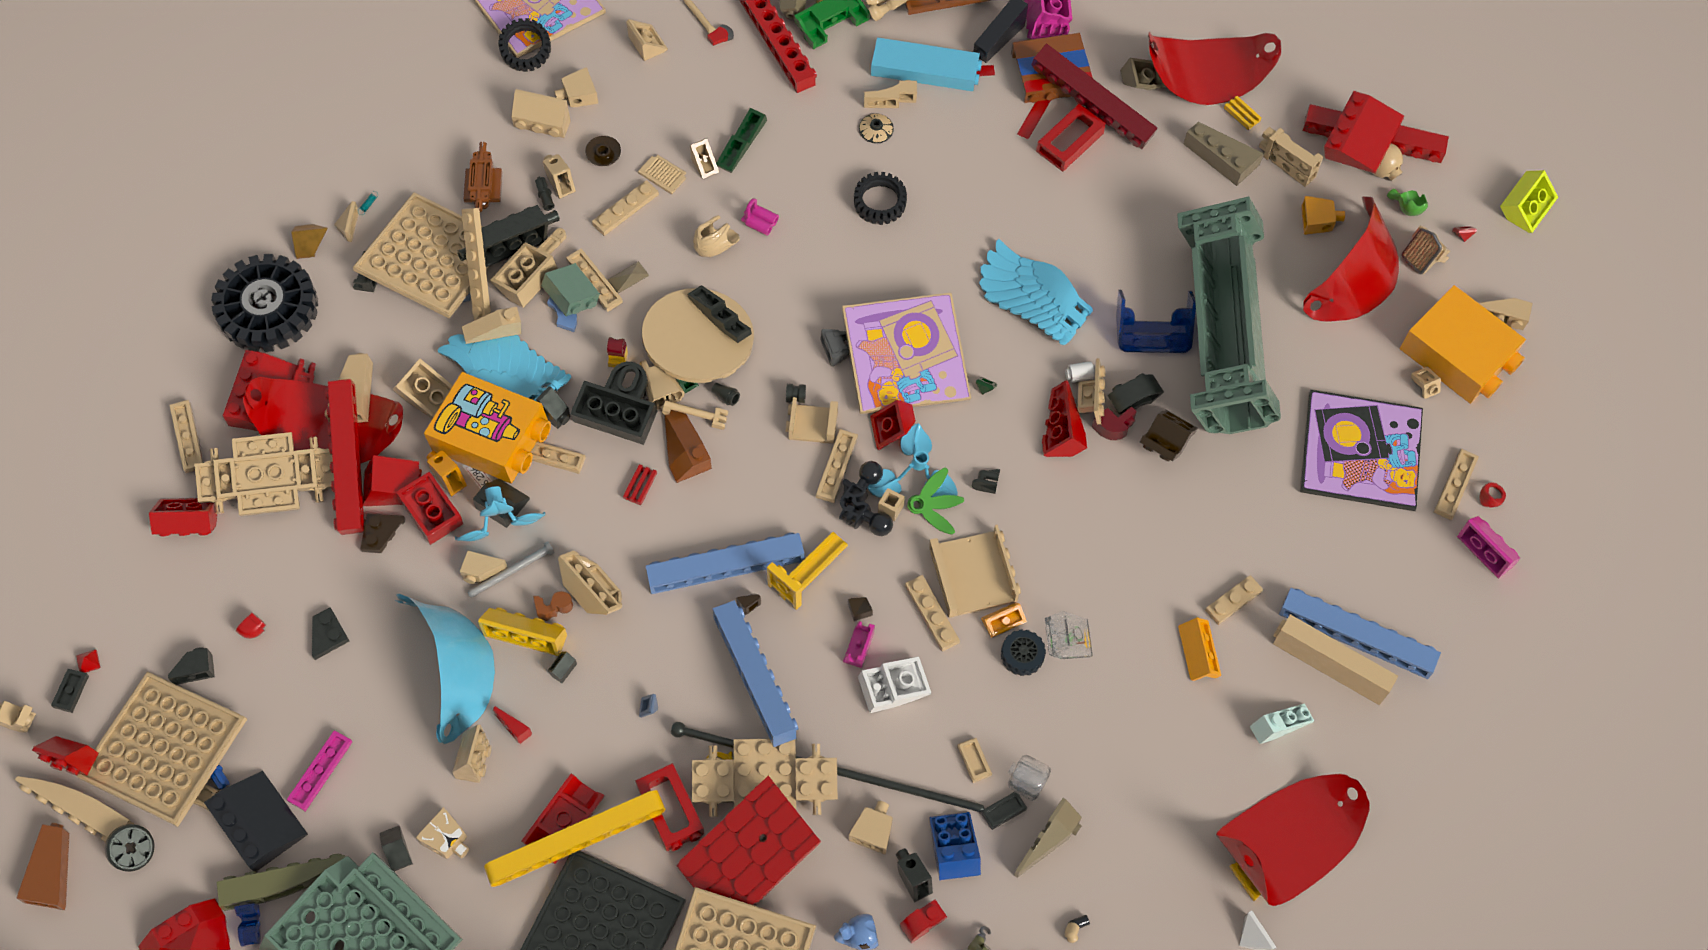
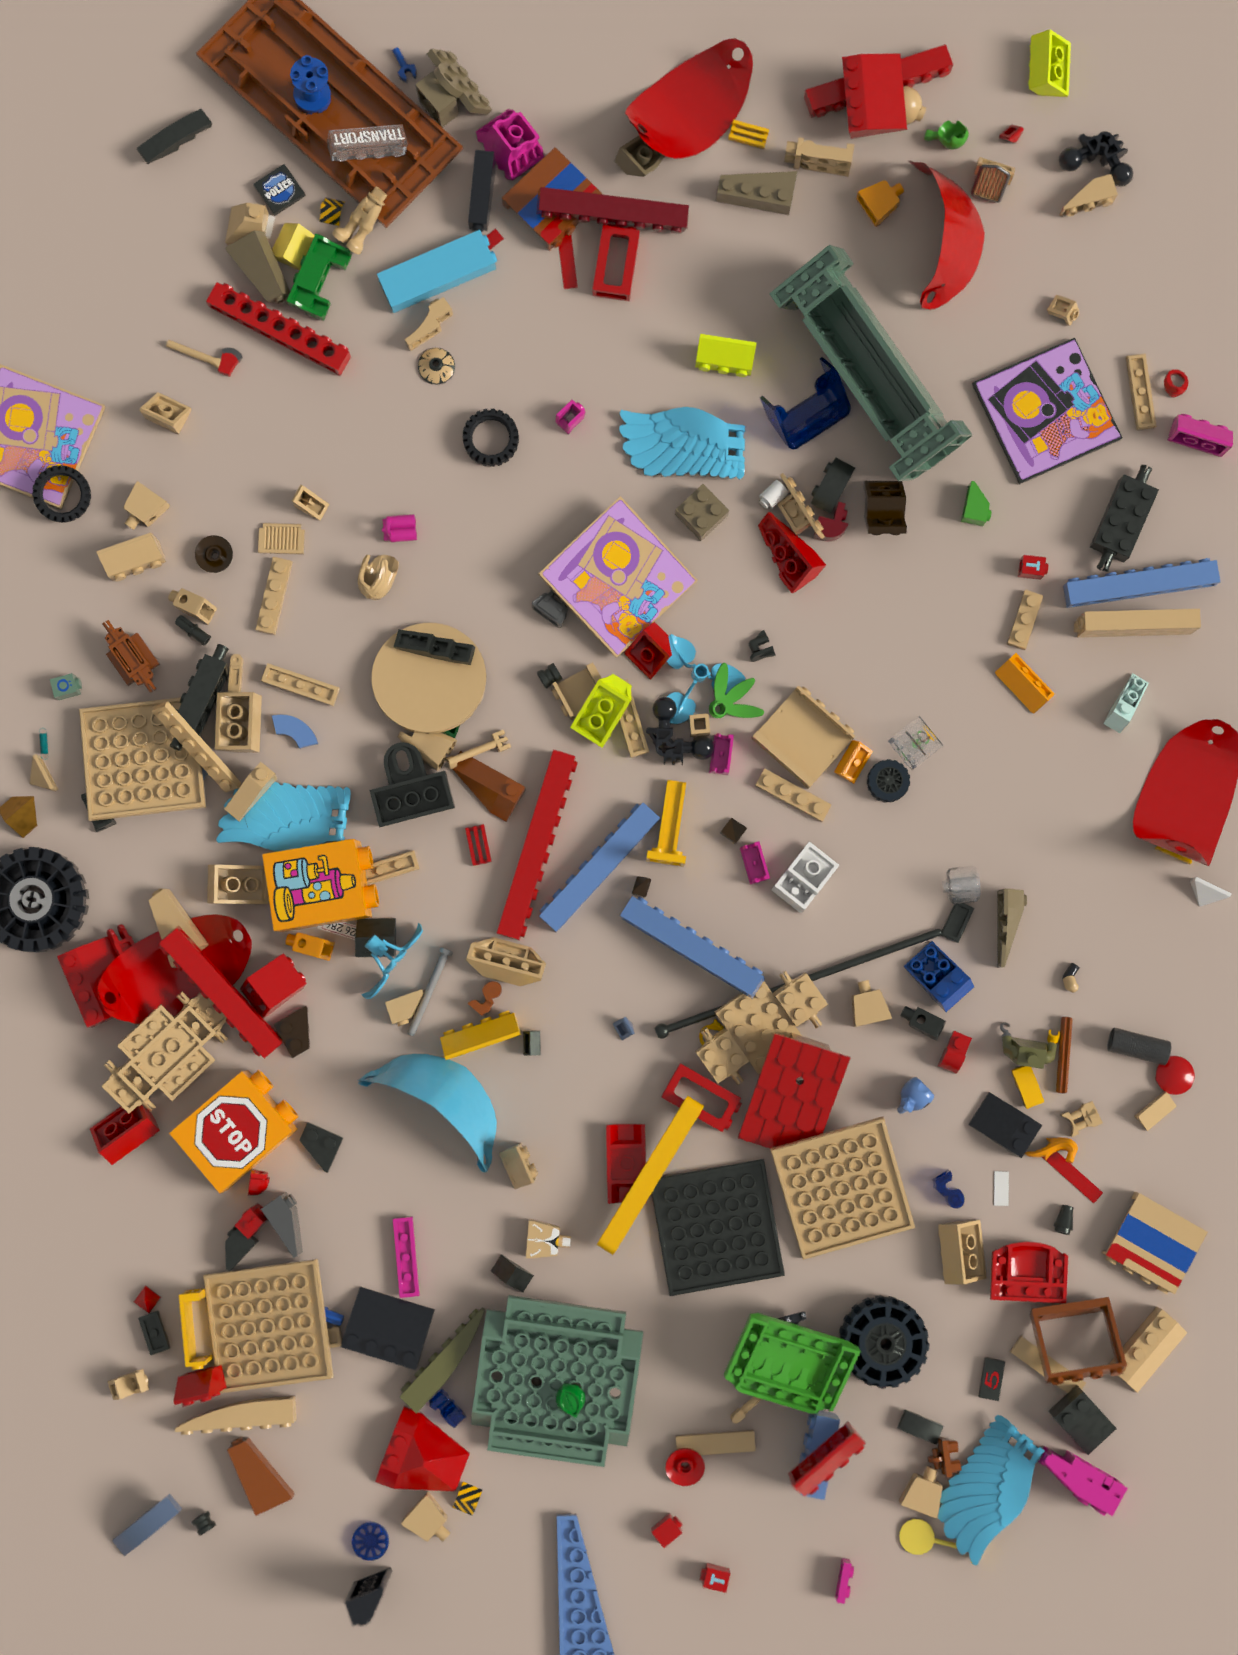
camera: 35 degrees left, 20 degrees up
(98, 701) = (185, 1301): none -> yellow panel
(142, 846) = (307, 1407): pearl dark grey wheel -> none
(186, 435) = (67, 1061): tan plate -> none
(222, 652) = (251, 1221): none -> red head
(247, 670) = (284, 1219): none -> dark grey slope
(268, 570) = (235, 1129): none -> brick
(417, 172) = (66, 686): none -> sand green brick
(430, 508) = (324, 986): red slope -> none
(515, 727) = (533, 1118): red slope -> none
(554, 407) = (359, 829): pearl dark grey slope -> none
(570, 289) = (290, 710): sand green brick -> none
(616, 351) = (373, 741): dark red leg -> none
(628, 277) = (326, 661): dark tan slope -> none
(685, 514) = (536, 845): none -> red brick
(727, 394) = (490, 715): pearl dark grey cone -> none
(741, 141) = (327, 460): dark green slope -> none
(818, 440) = (603, 709): none -> neon yellow slope
(894, 541) = (722, 754): none -> dark pink hinge
(954, 219) = (570, 416): none -> dark pink window
(974, 760) = (907, 896): tan tile -> none
(985, 385) = (702, 559): dark green slope -> none
(1011, 349) = (702, 512): none -> dark tan brick
(1113, 247) = (725, 355): none -> neon yellow slope
(1248, 484) = (976, 506): none -> bright green slope
(1268, 560) = (1032, 567): none -> red brick
(1376, 570) = (1124, 518): none -> pearl dark grey brick
(1464, 345) = (1078, 255): light orange brick -> none
(1541, 282) = (1104, 145): none -> black piece

